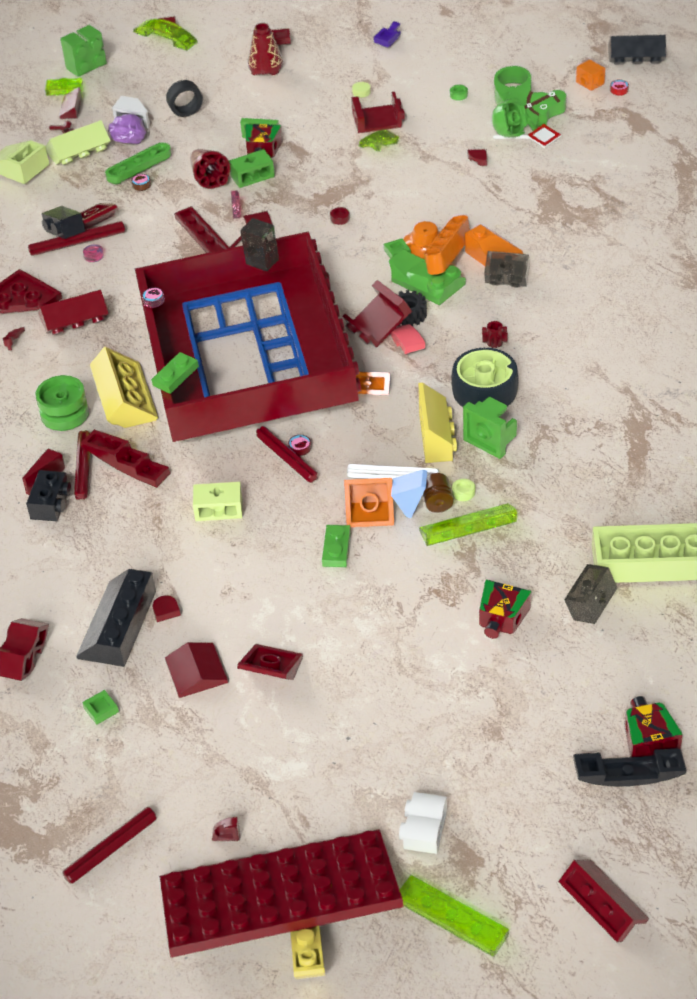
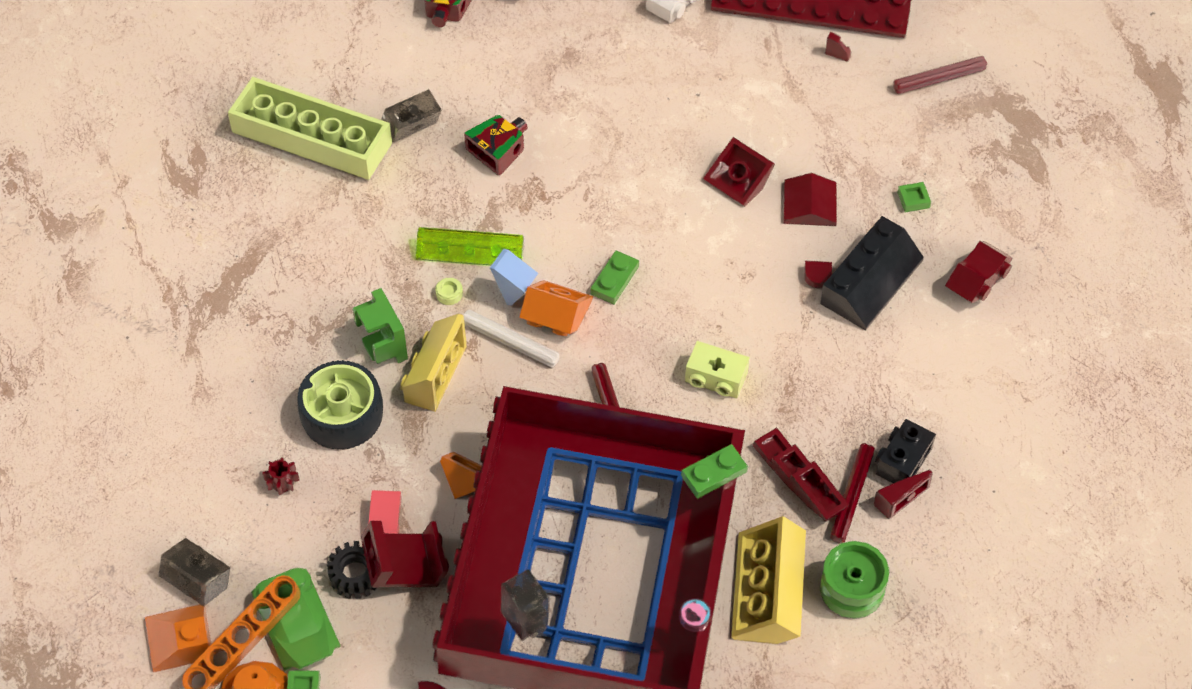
camera: 160 degrees left, 10 degrees up
(438, 493) = (480, 285): reddish brown piece -> none

